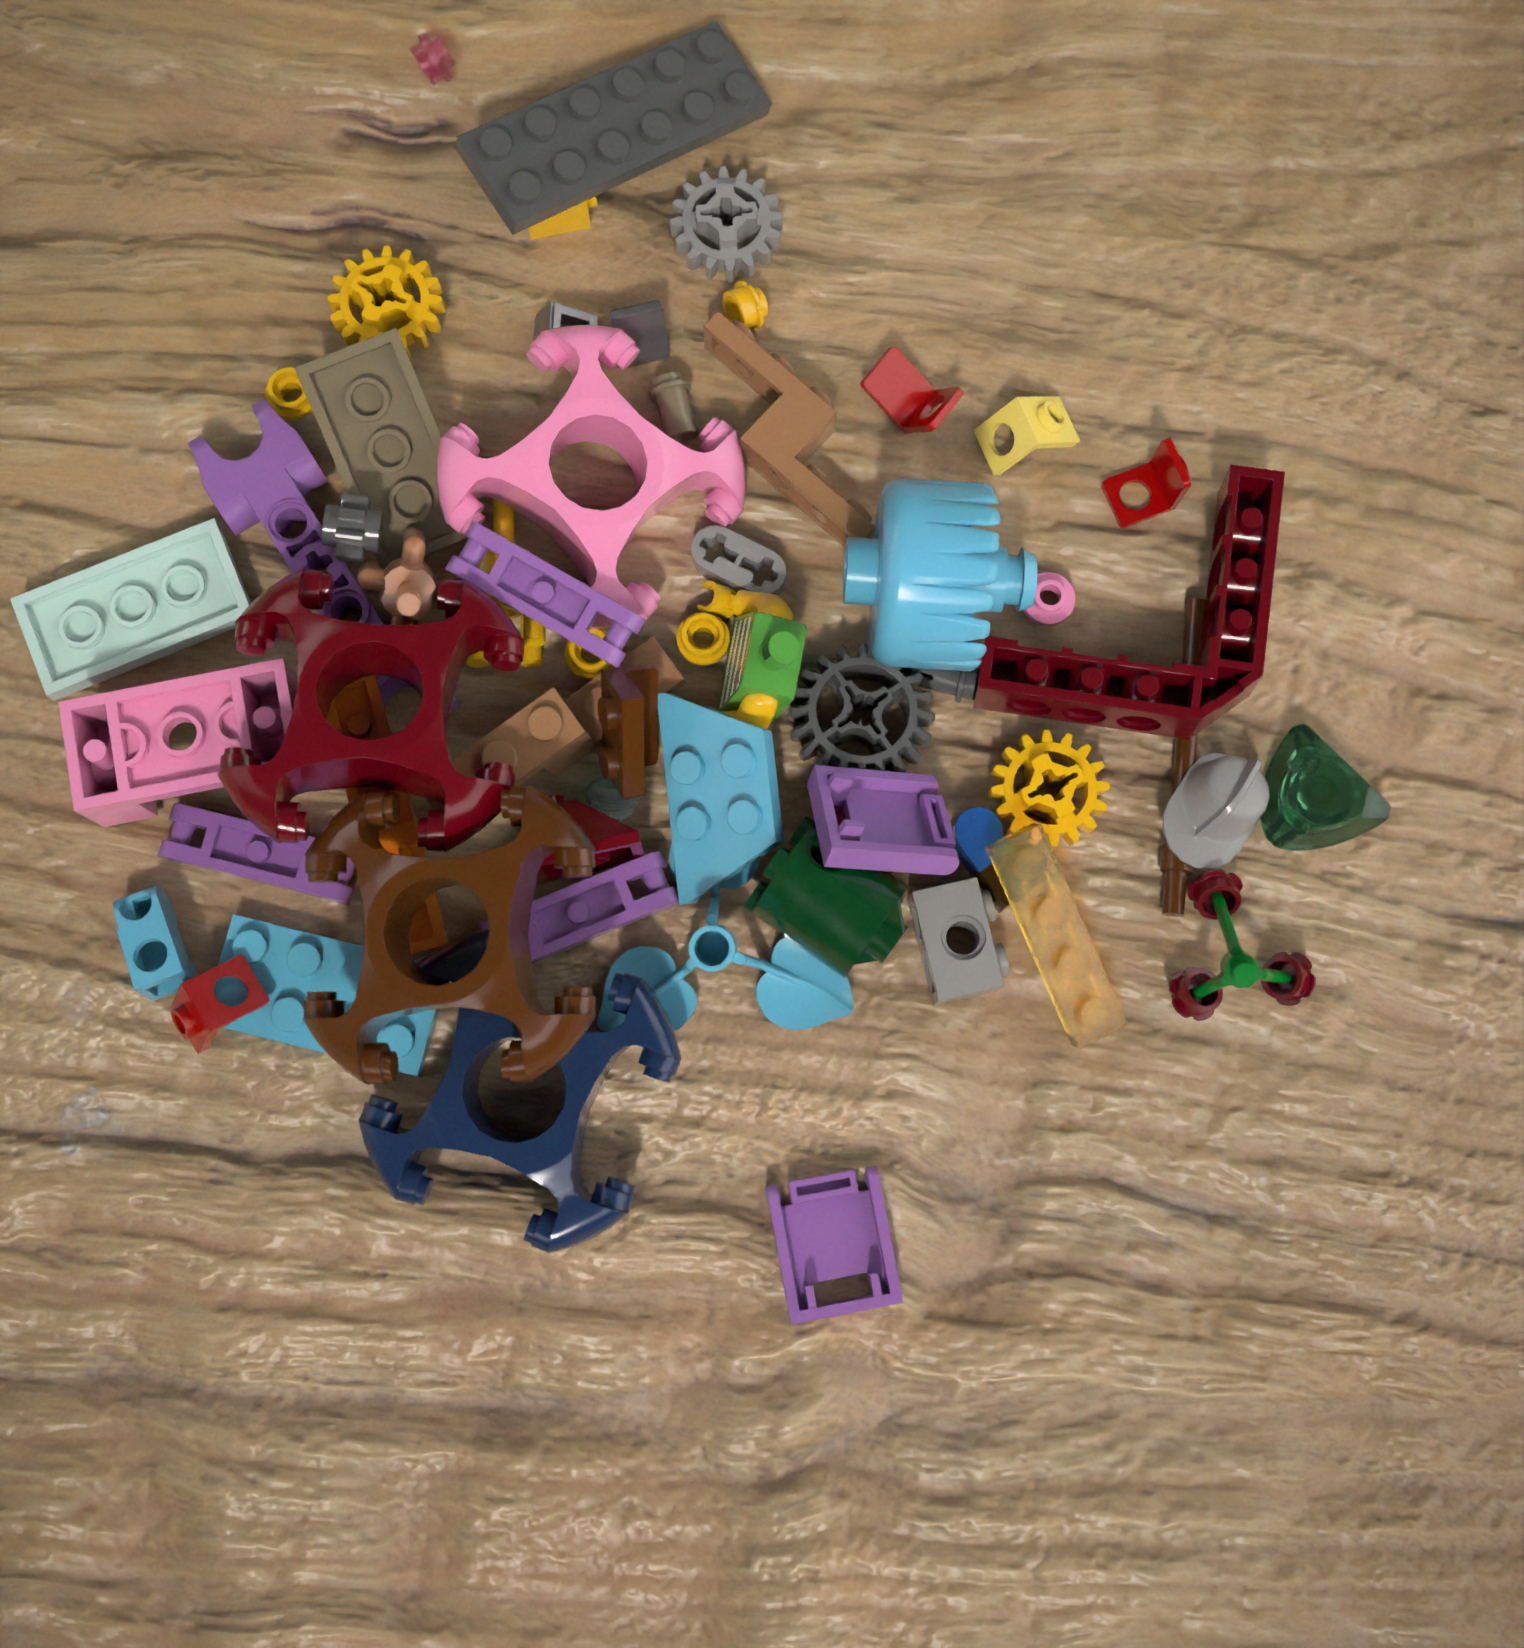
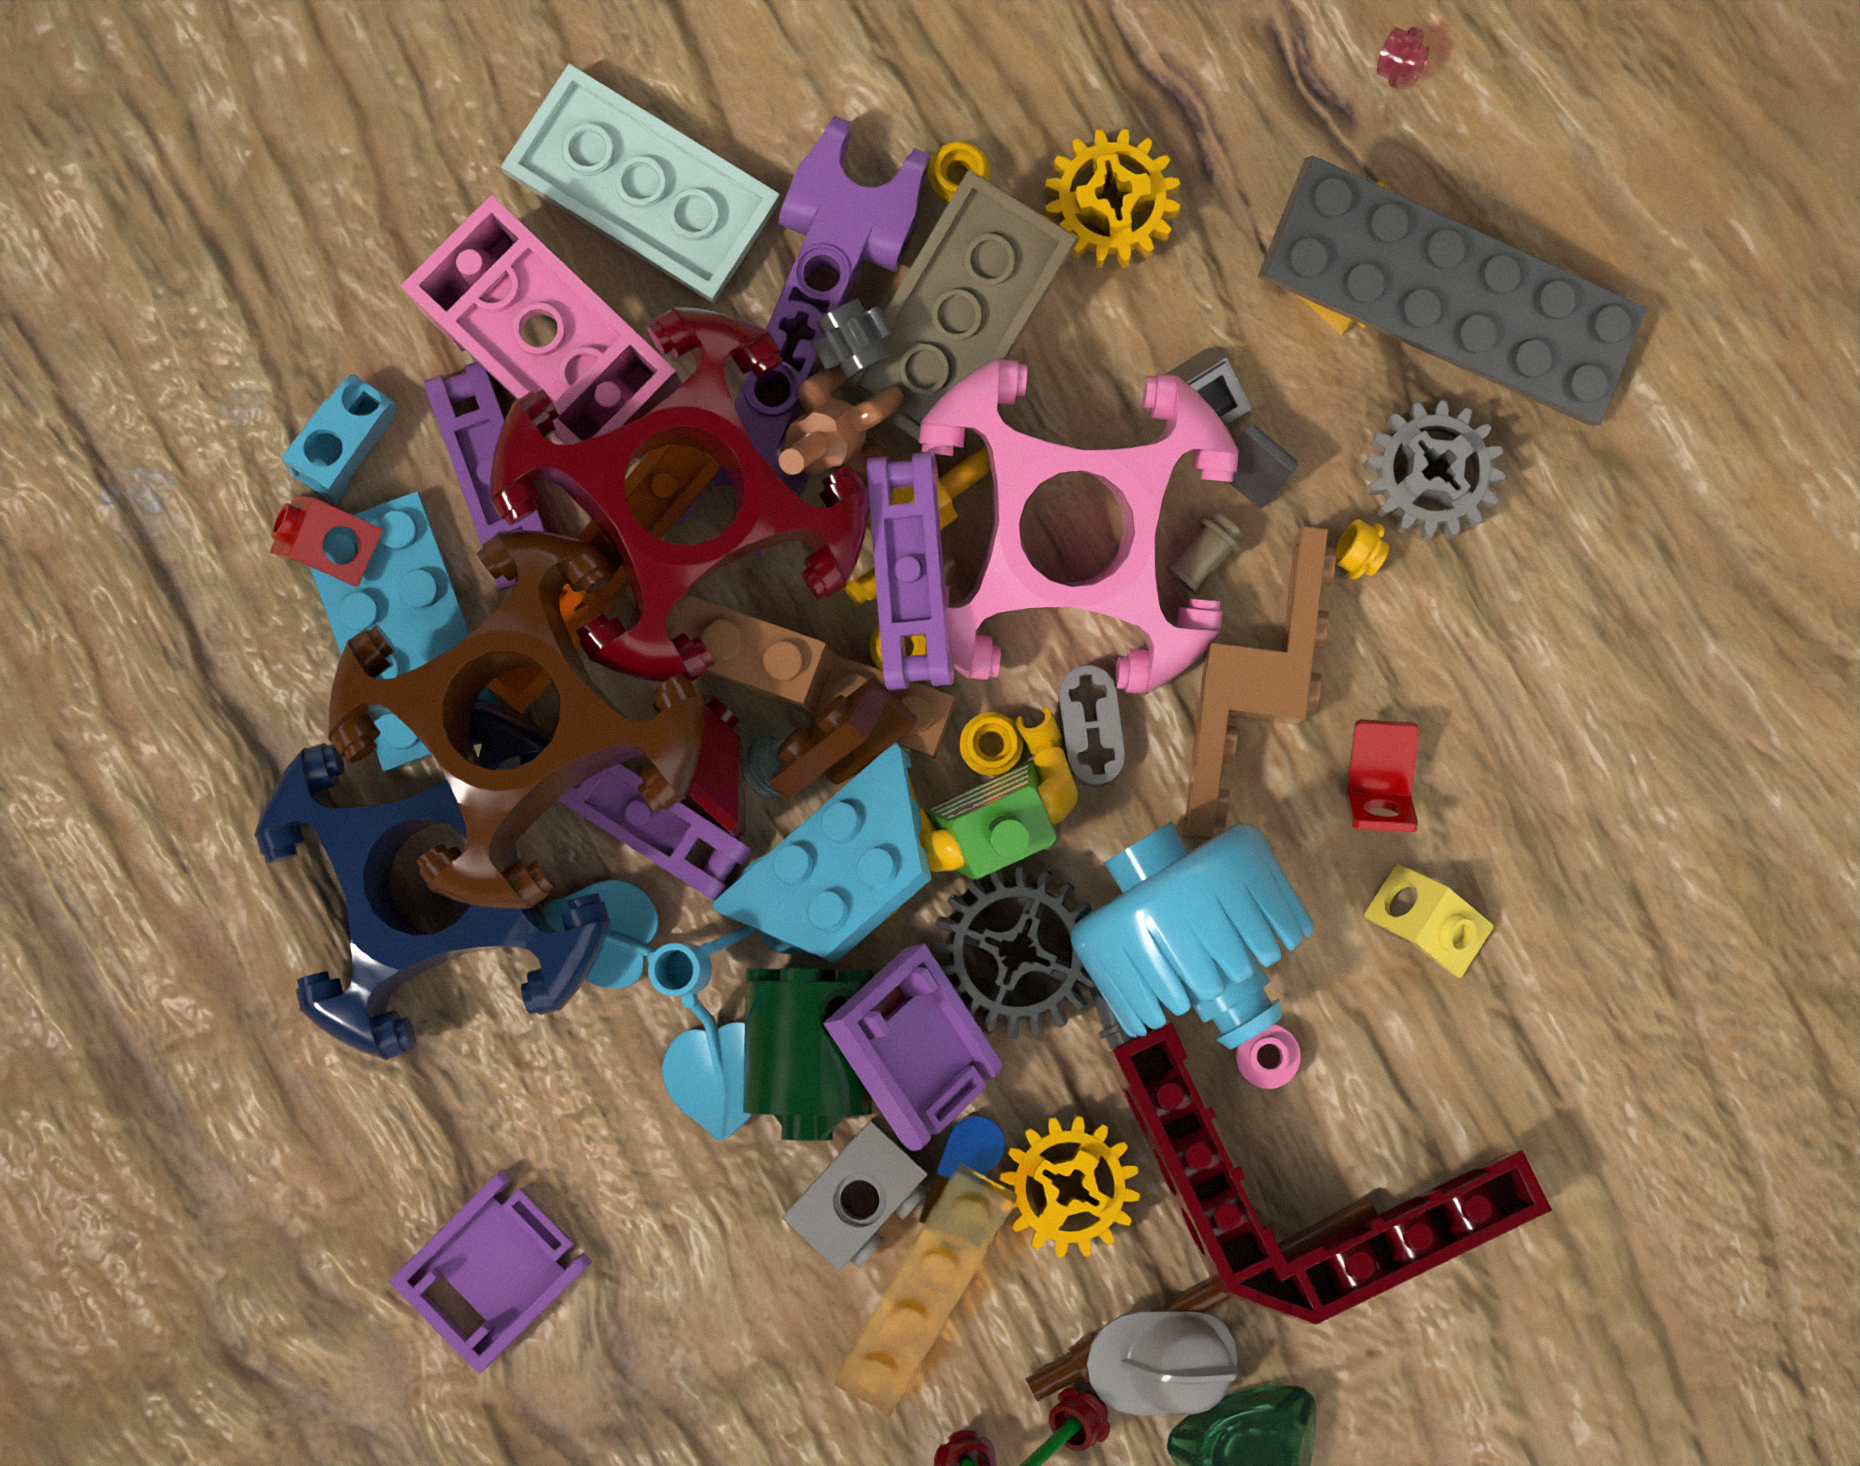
camera: 60 degrees right, 5 degrees up
(1163, 477) = (1474, 1093): red bracket -> none

